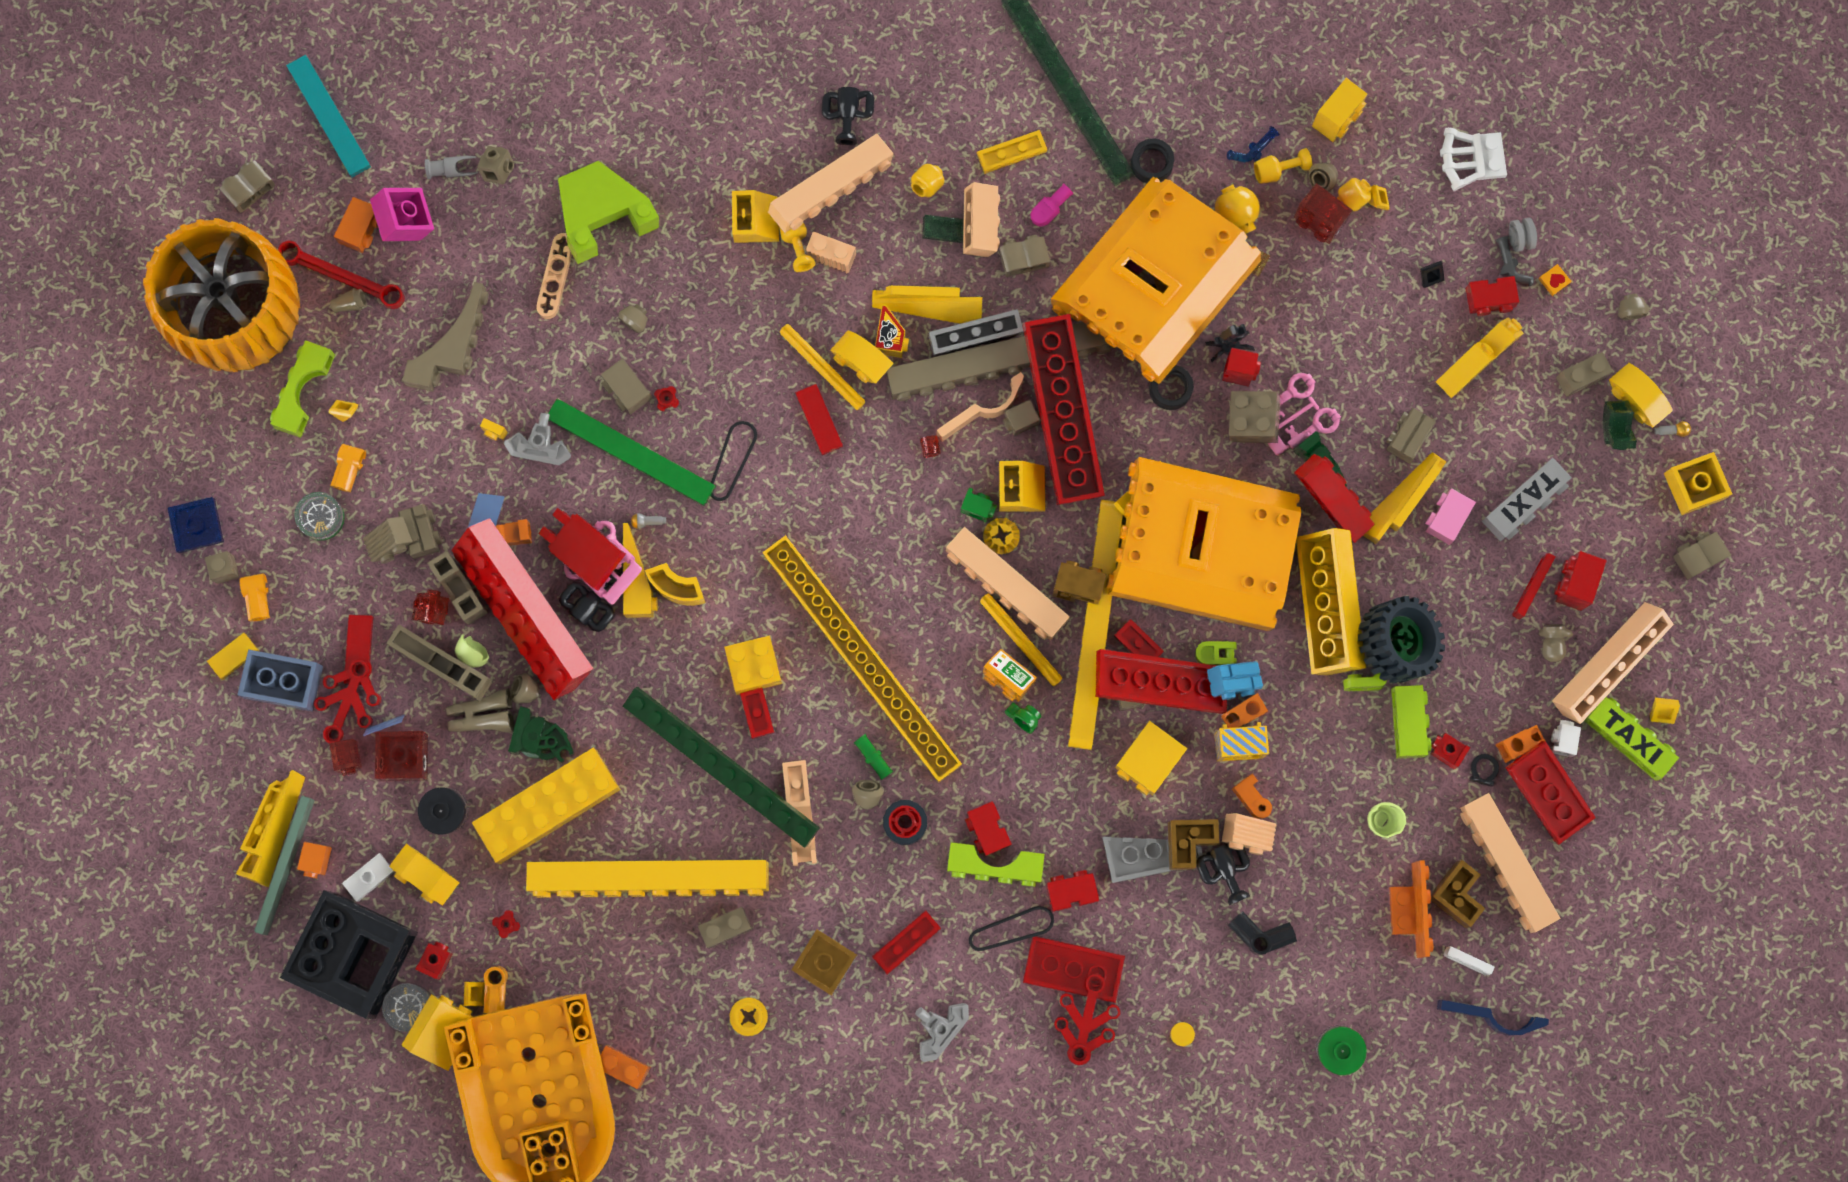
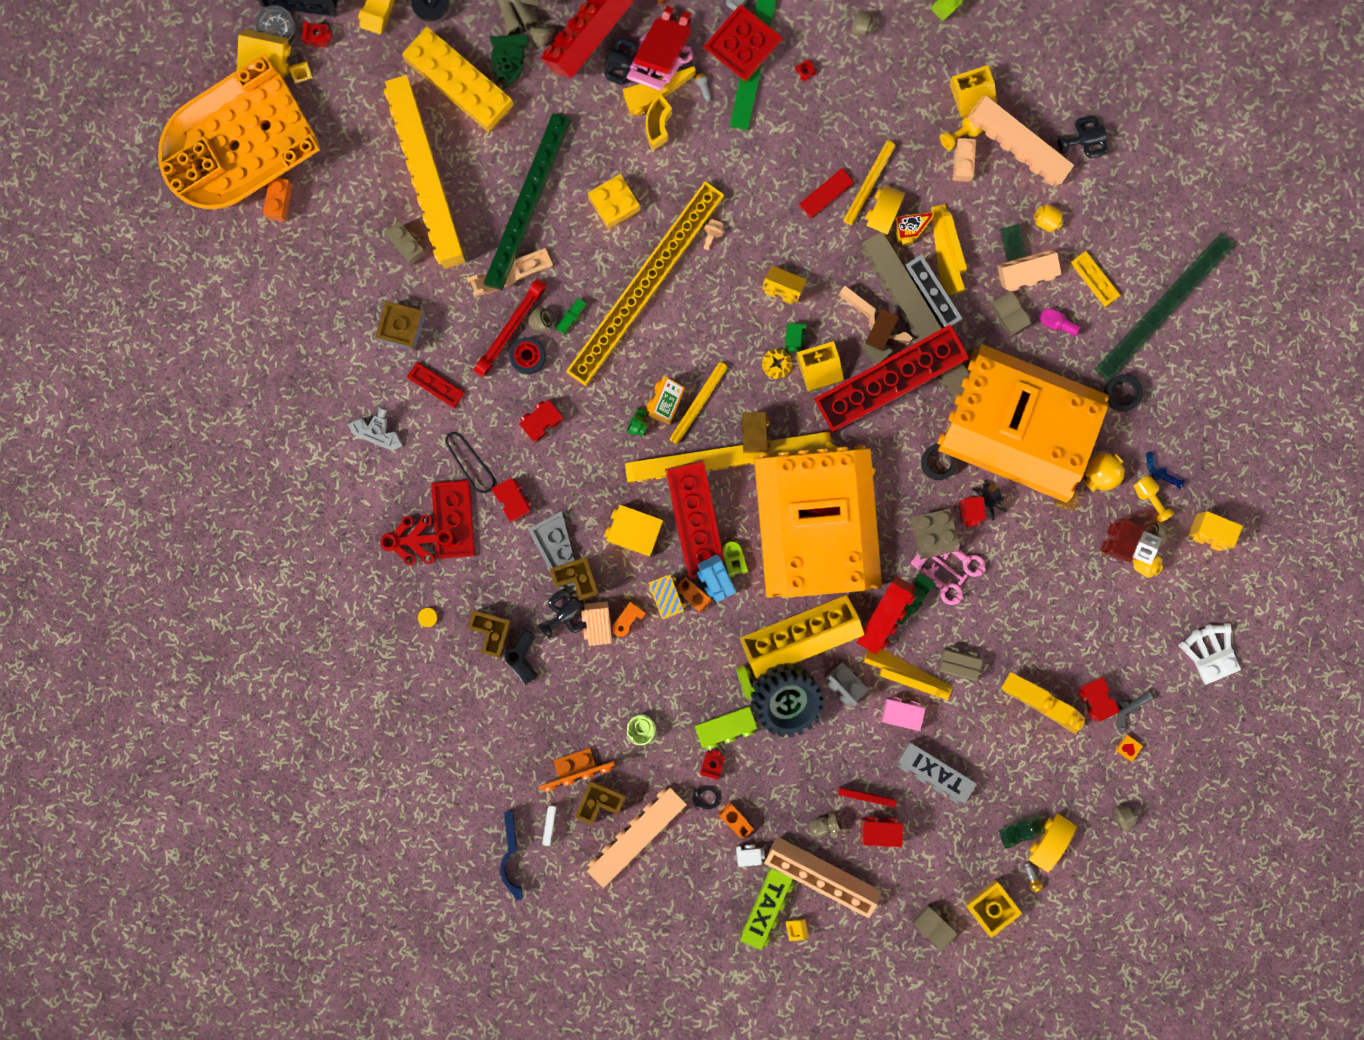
camera: 70 degrees right, 5 degrees up
(495, 993) = (305, 87): light orange piece -> none
(512, 924) = (360, 84): red plate -> none
(612, 459) = (743, 43): none -> red plate
(625, 386) = (804, 36): dark tan brick -> none
(737, 1016) = (341, 274): yellow gear -> none
(743, 463) = (773, 146): black piece -> none
(757, 713) = (578, 217): red plate -> none
(821, 560) = (713, 229): none -> light nougat piece
(865, 832) = (533, 294): none -> red piece
(913, 498) = (783, 284): none -> yellow slope
(930, 446) = (831, 286): clear red hose -> none
(1002, 403) = (881, 330): none -> reddish brown tile
(1007, 583) = (739, 378): light nougat brick -> none
(1026, 867) = (511, 410): lime arch -> none
(1137, 641) = (724, 494): red plate -> none
(1223, 956) = (495, 630): none -> pearl gold brick
(1340, 186) = (1147, 547): none -> white brick
(1341, 1050) = (450, 743): green piece -> none
(1379, 198) = (1152, 585): yellow slope -> none
(1395, 570) = (847, 684): none -> light grey bracket
(1432, 274) = (1101, 646): black slope -> none
(1522, 234) = (1158, 710): light grey wheel -> none
(1550, 792) = (702, 854): red tile -> none
(1584, 374) = (1055, 792): dark tan brick -> none

